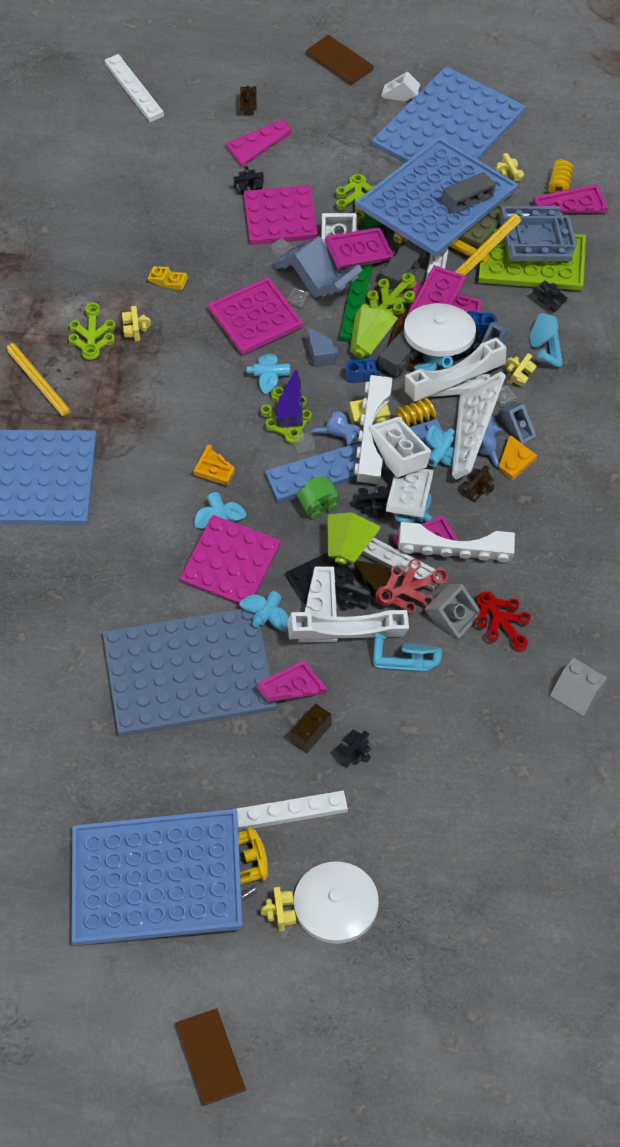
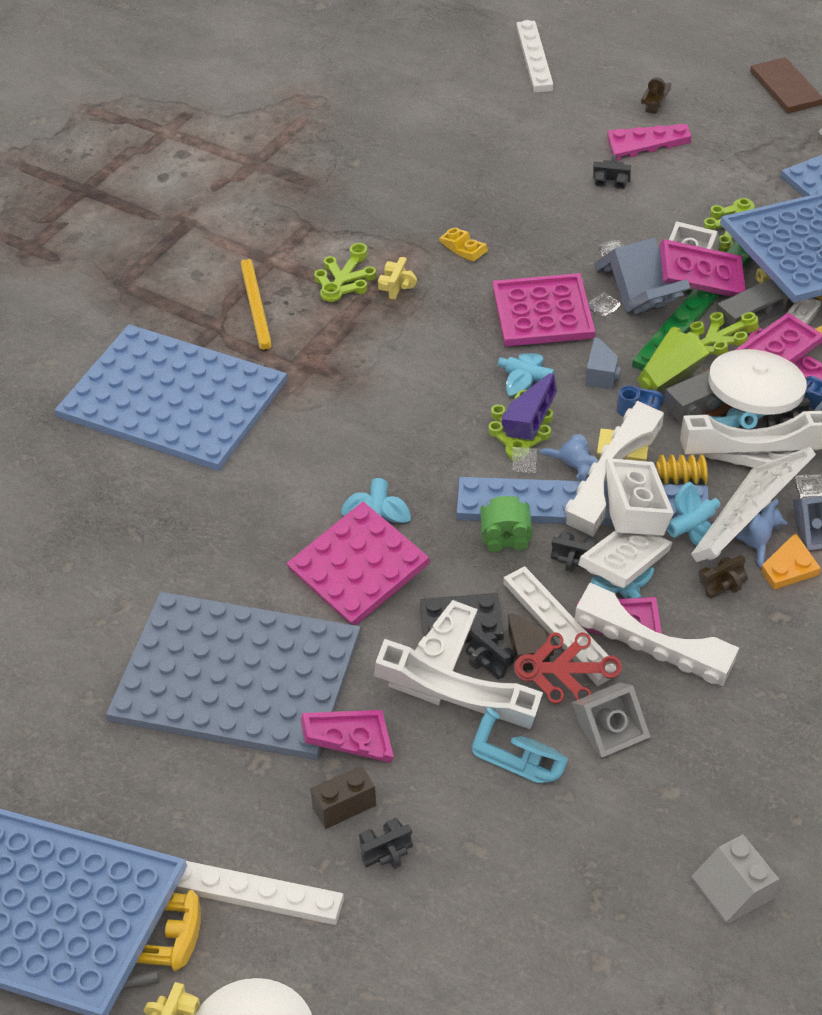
camera: 25 degrees right, 10 degrees down
(214, 467) = (400, 454): light orange wing -> none
(266, 610) = (365, 631): medium azure plant -> none
(280, 214) = (630, 214): dark pink plate -> none
(349, 536) = (516, 579): lime slope -> none
(502, 618) = (672, 750): red plant -> none

